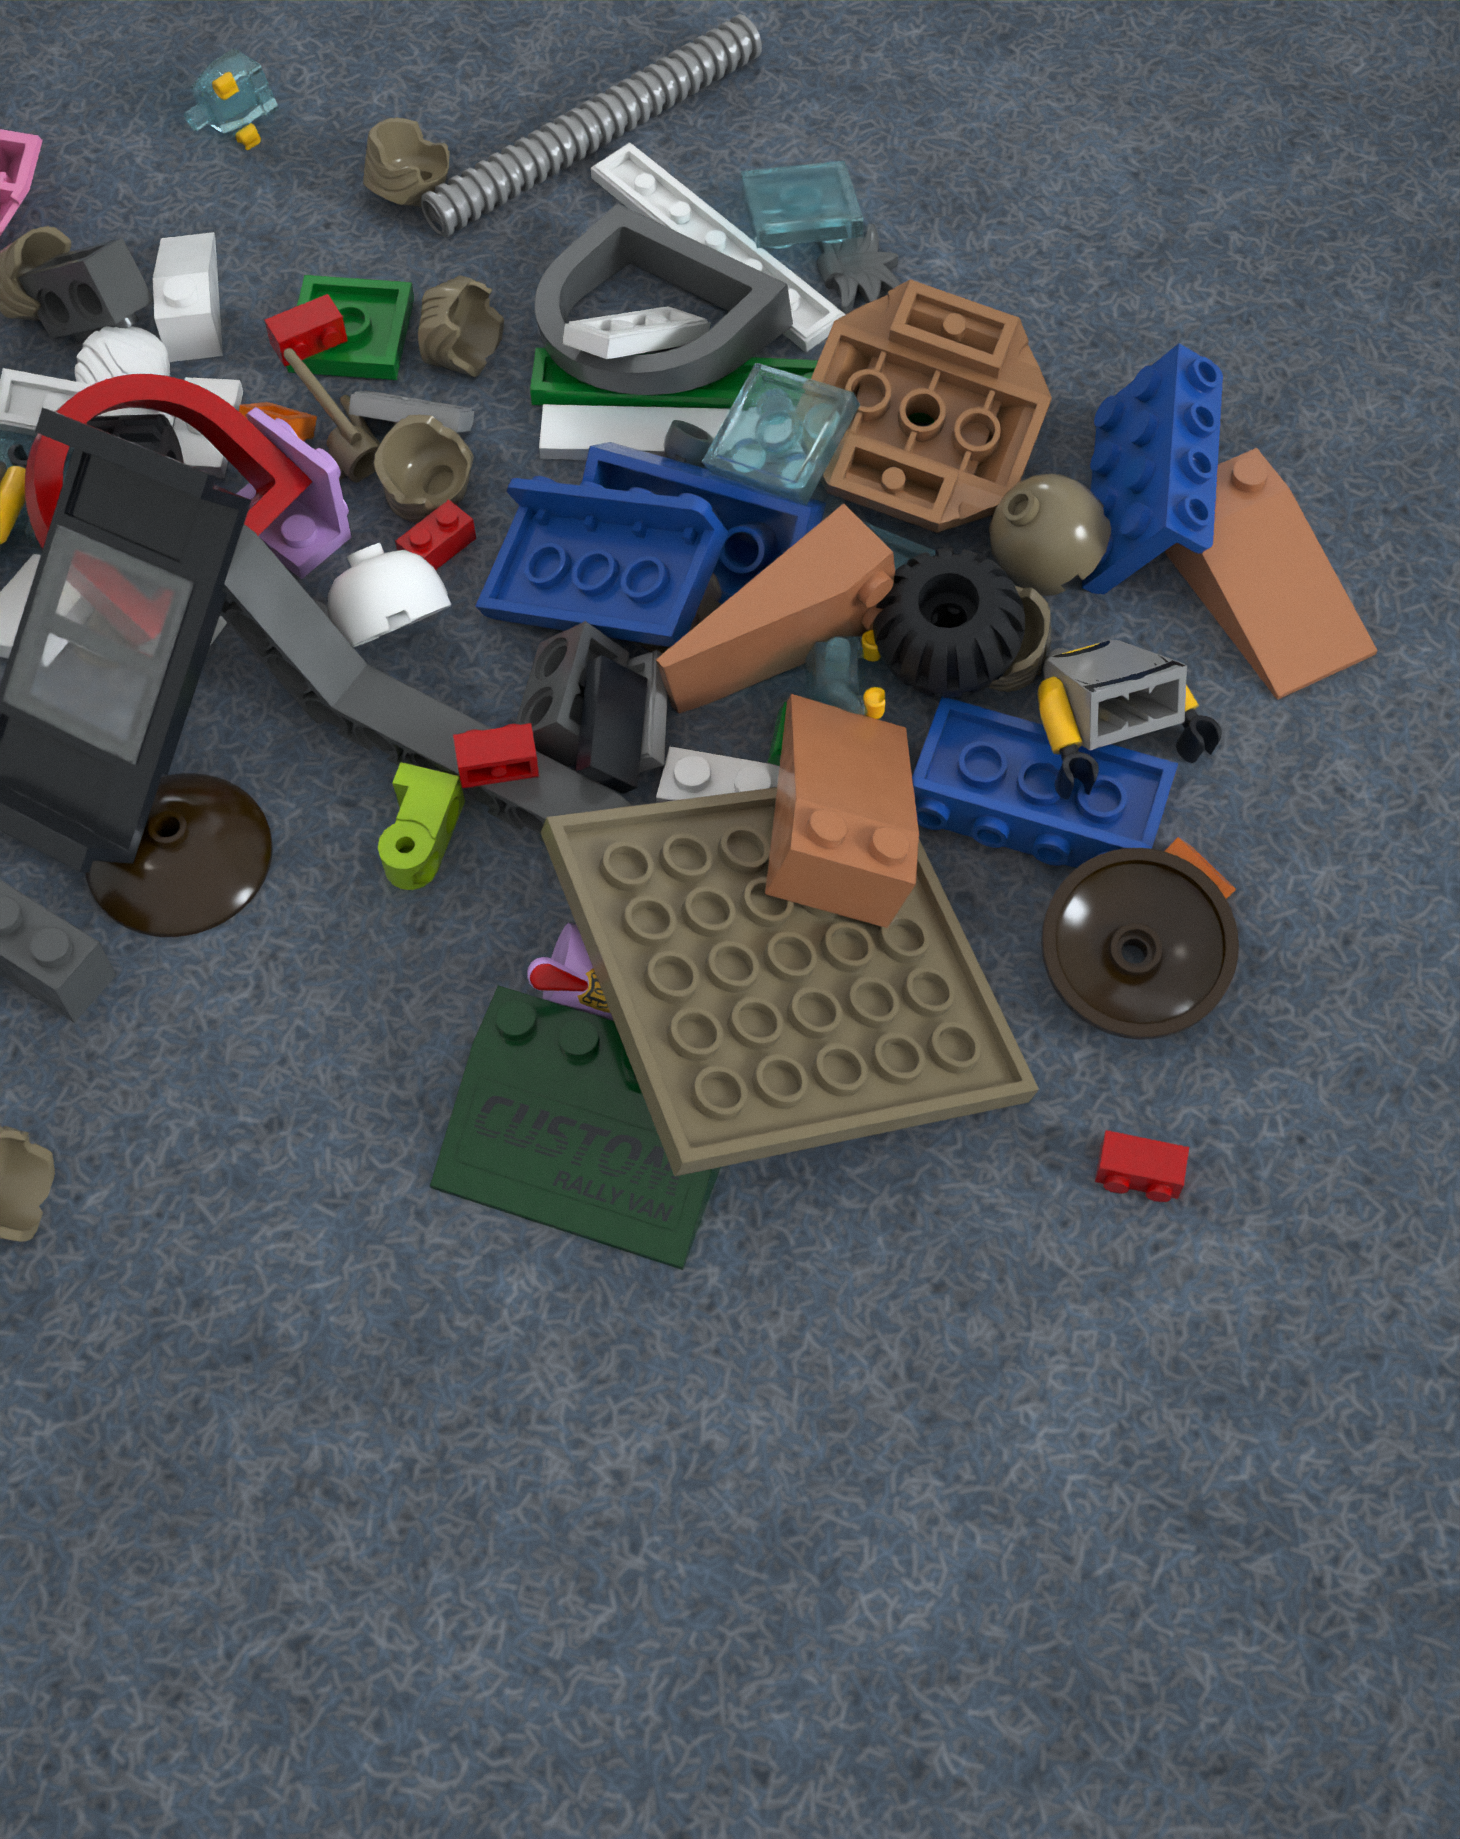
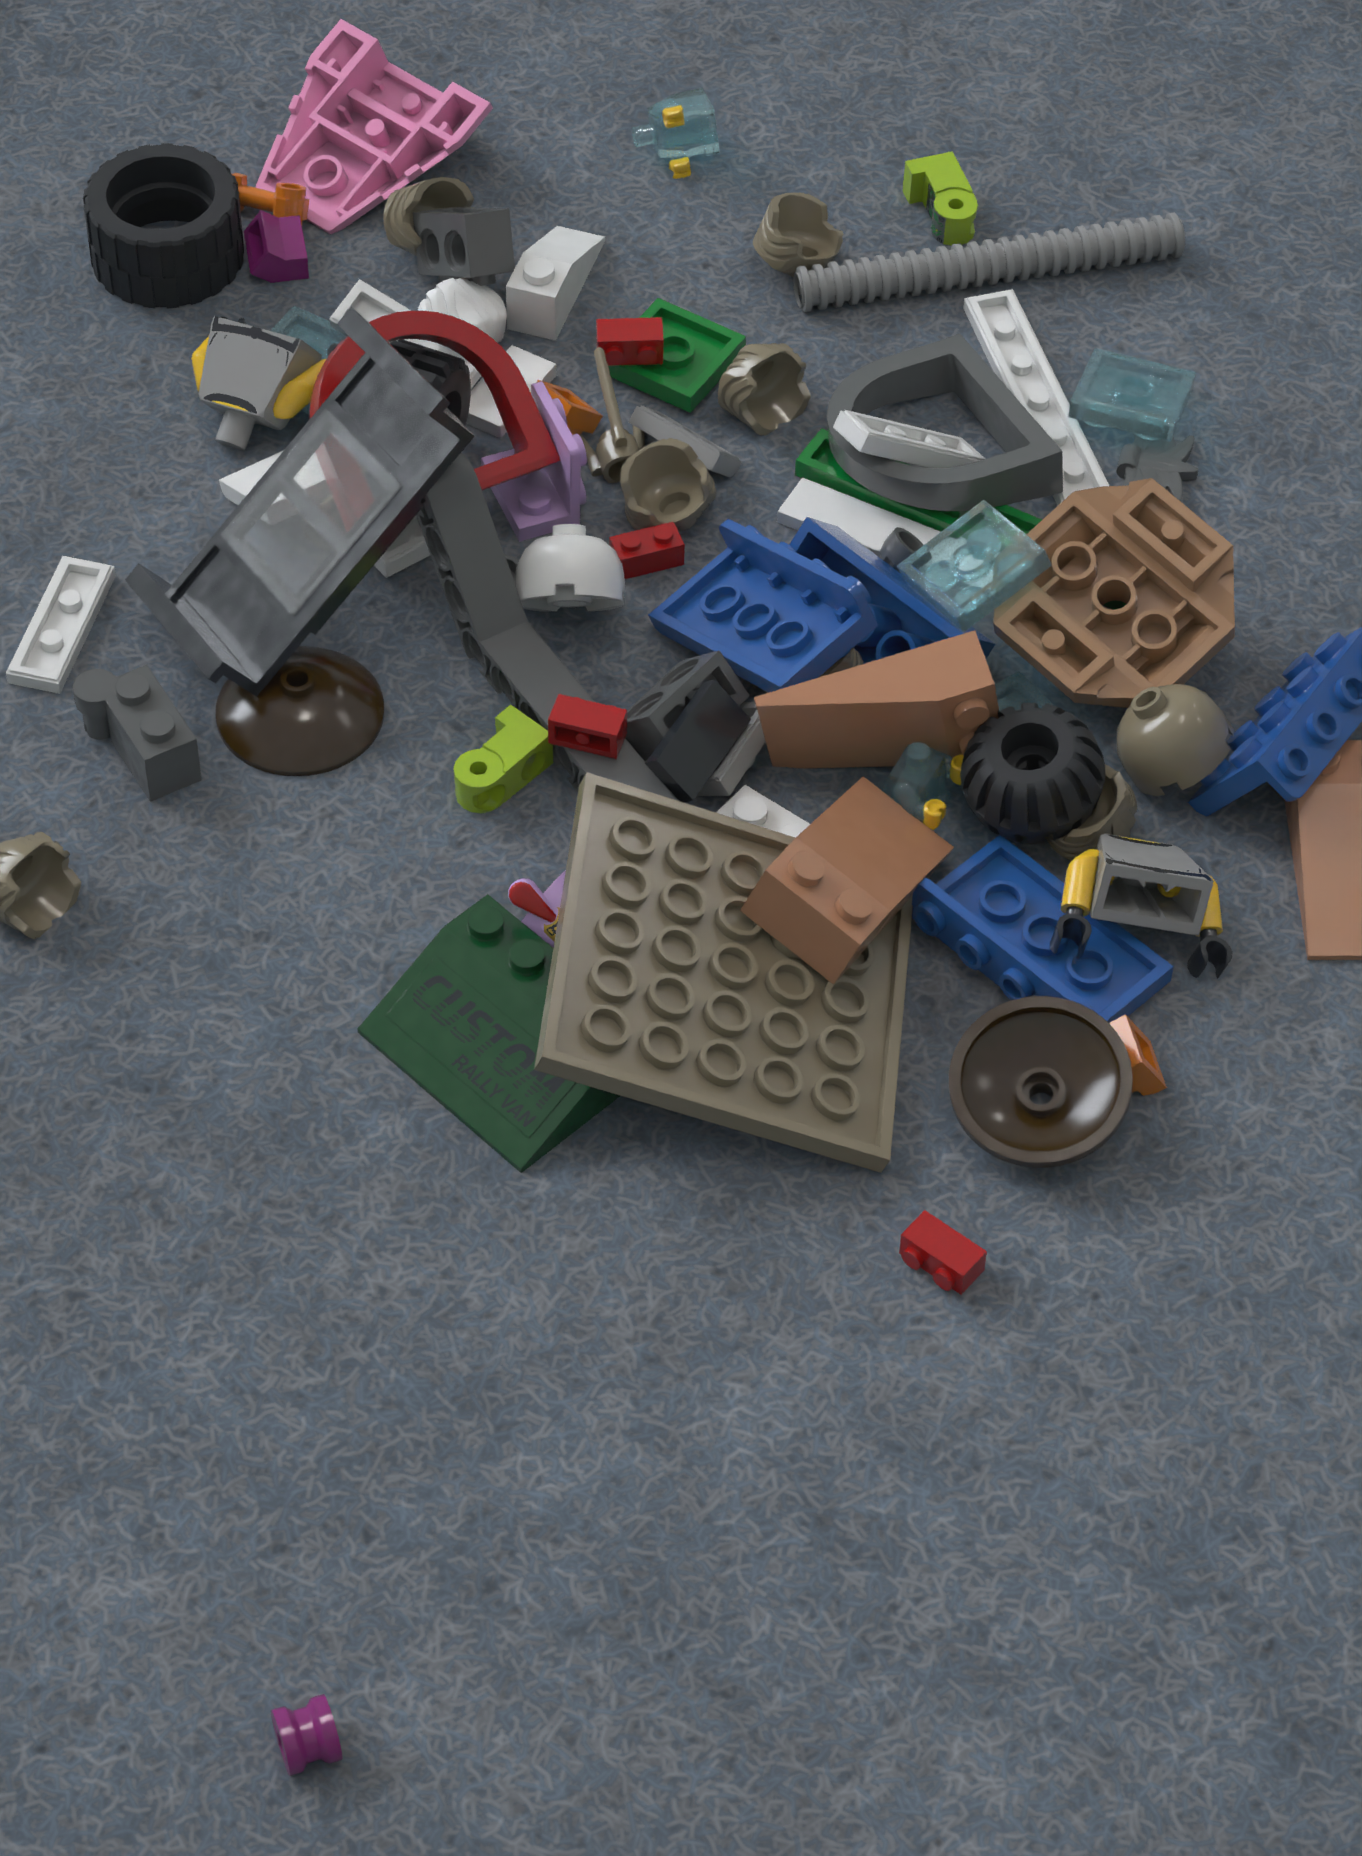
camera: 25 degrees right, 10 degrees down
(516, 73) = (945, 194): none -> lime leg

